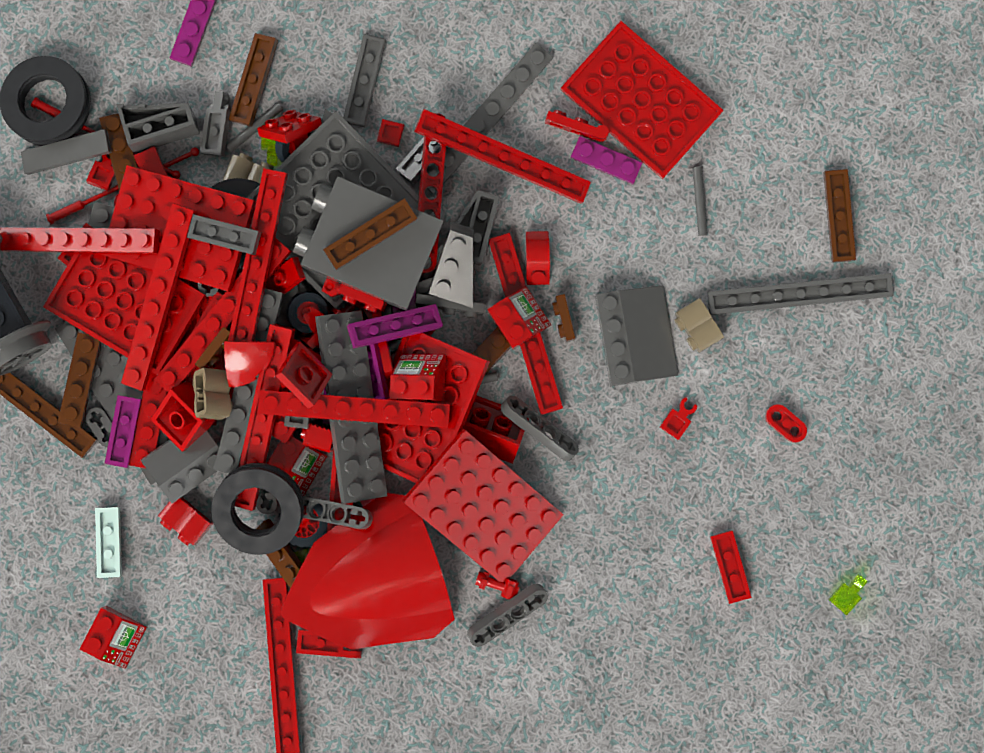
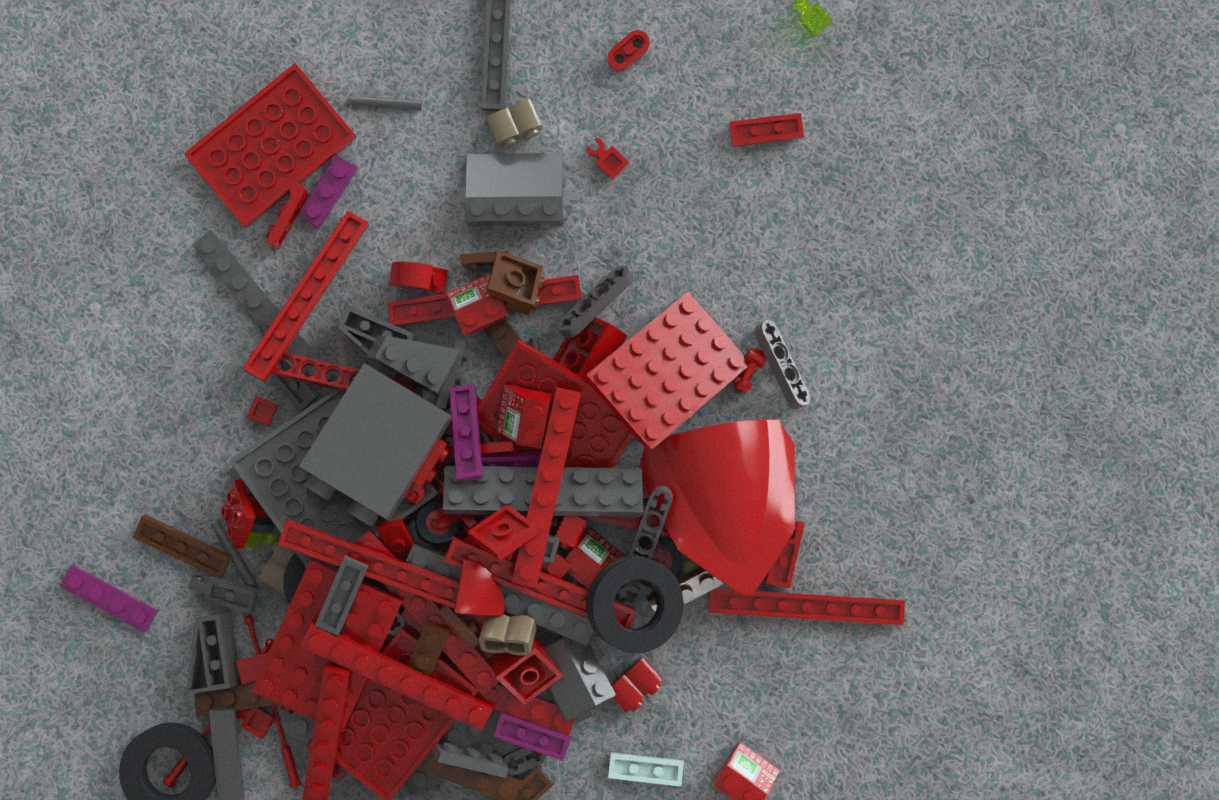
camera: 80 degrees left, 0 degrees up
(93, 376) = (470, 759): none -> dark grey plate
(189, 322) = (429, 648): none -> reddish brown plate
(364, 80) = (201, 430): dark grey tile -> none
(370, 234) = (366, 440): reddish brown plate -> none
(545, 350) = (515, 282): none -> reddish brown plate

